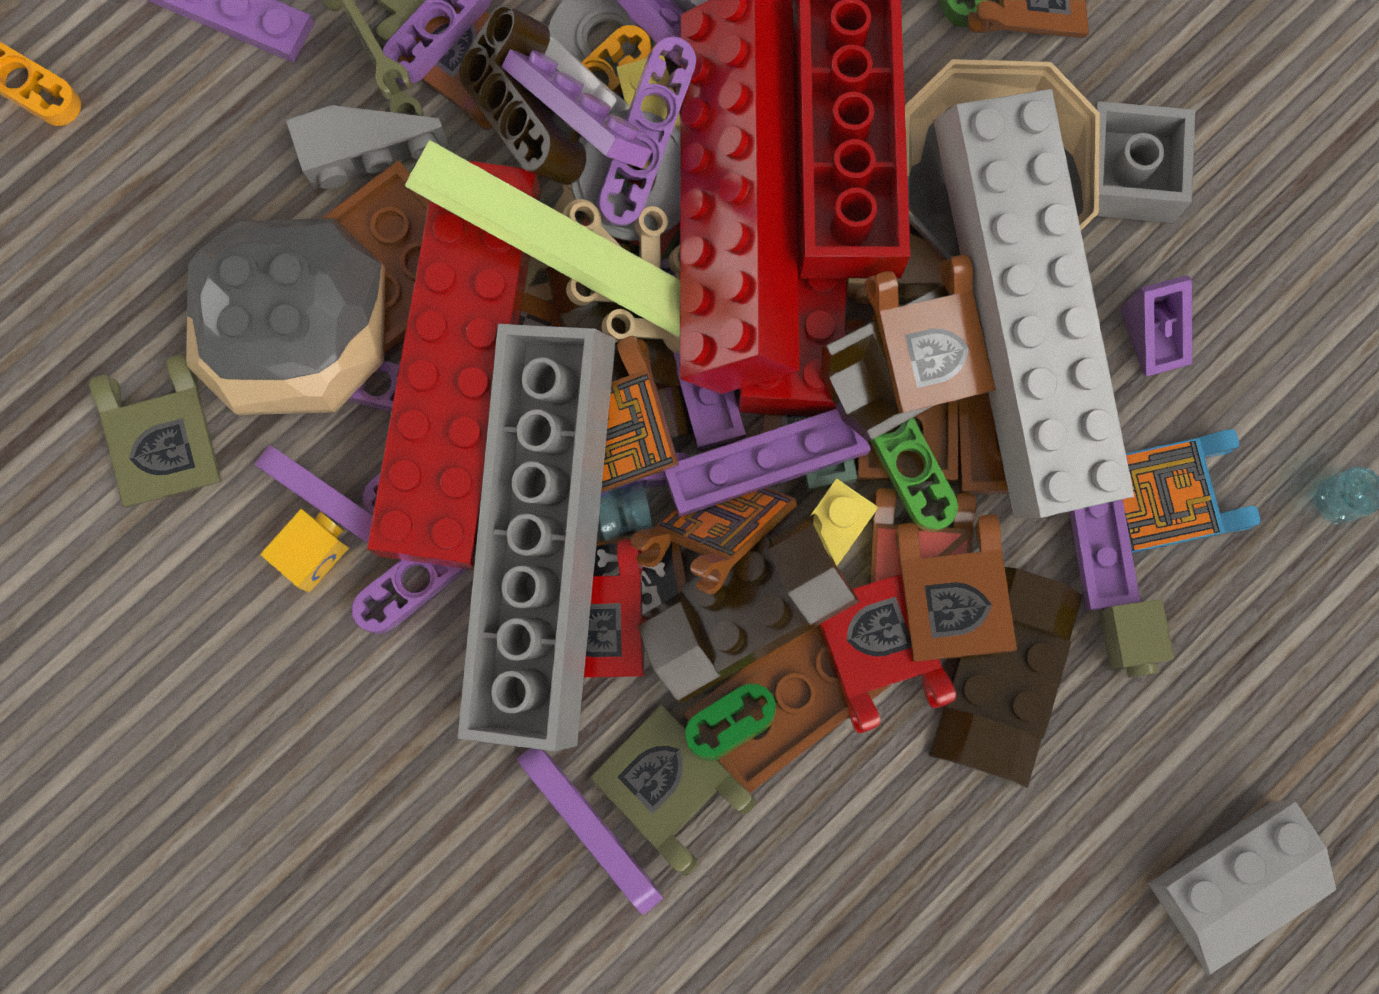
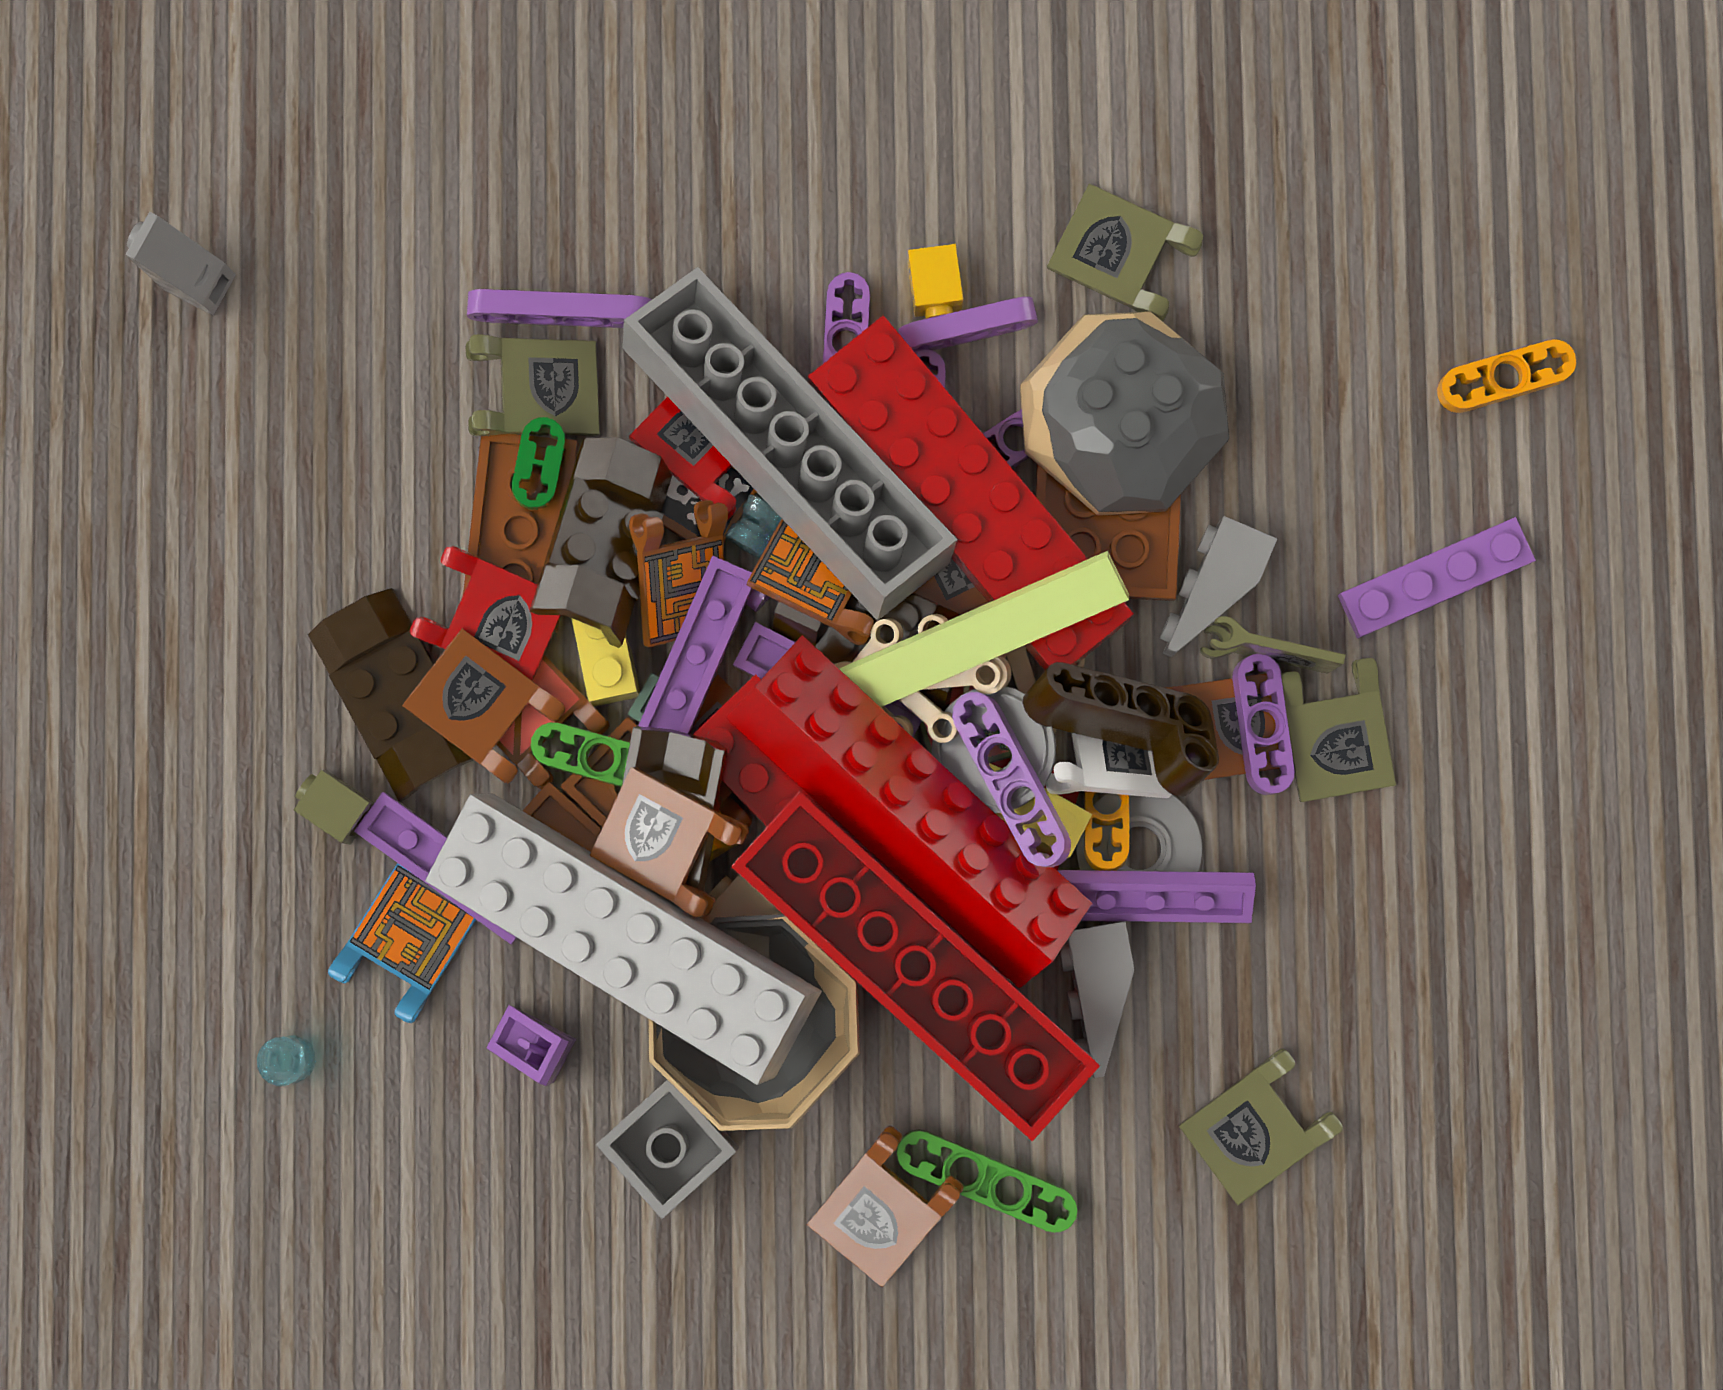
camera: 135 degrees right, 5 degrees up
(582, 111) = (1072, 740): medium lavender plate -> none
(1246, 883) = (106, 718): light grey slope -> none

